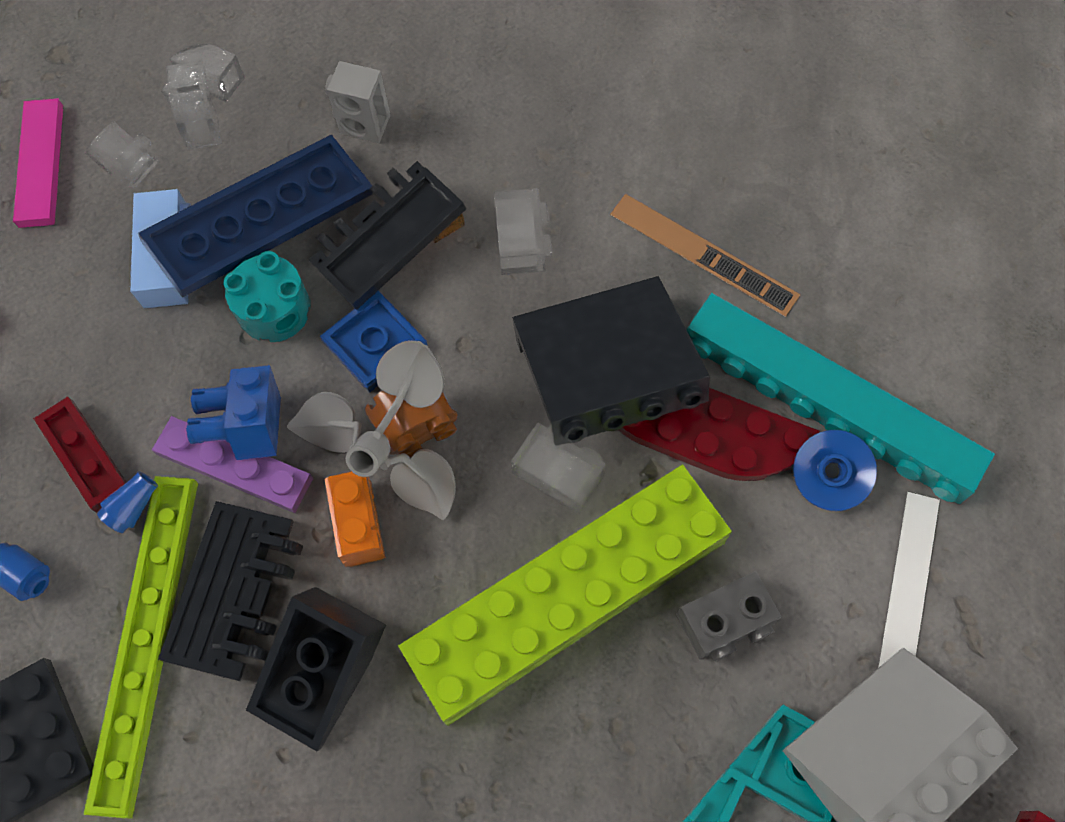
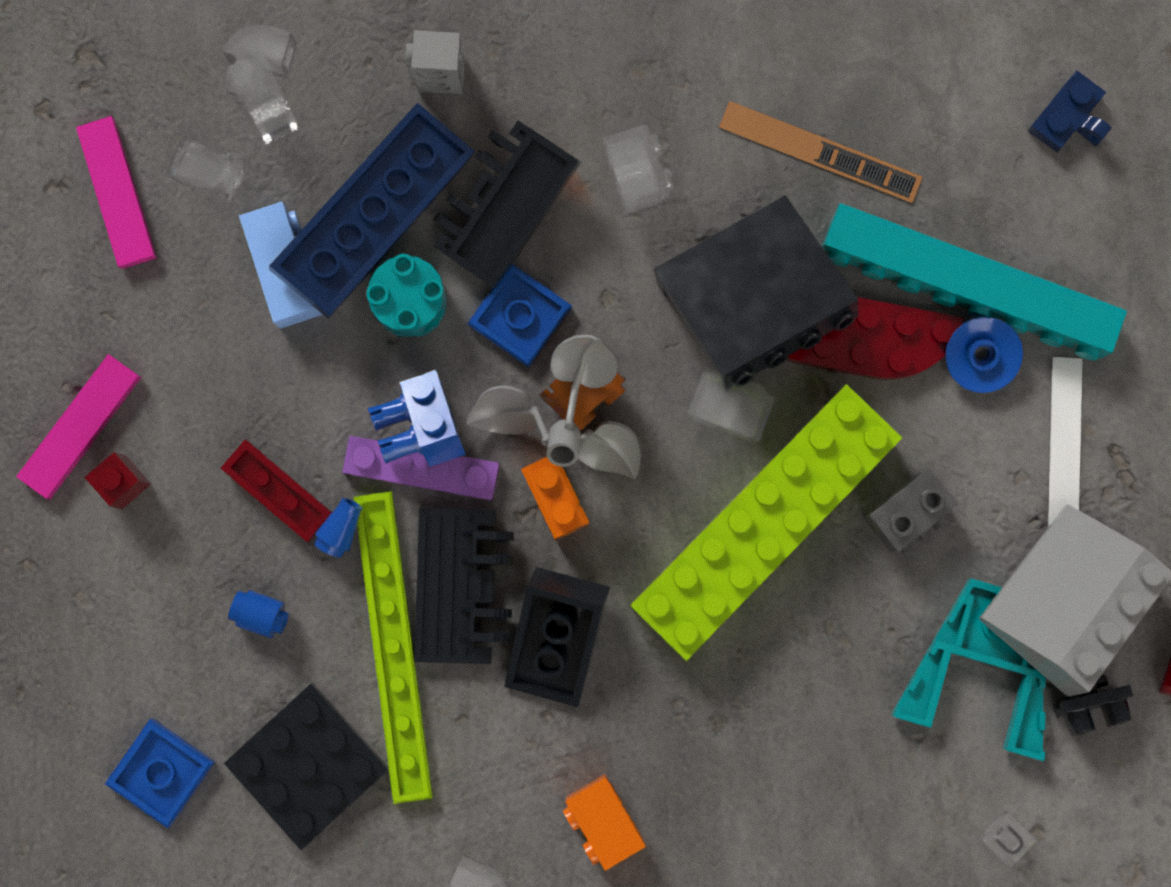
camera: 15 degrees left, 15 degrees up
(959, 263) = (1070, 113): none -> dark blue plate

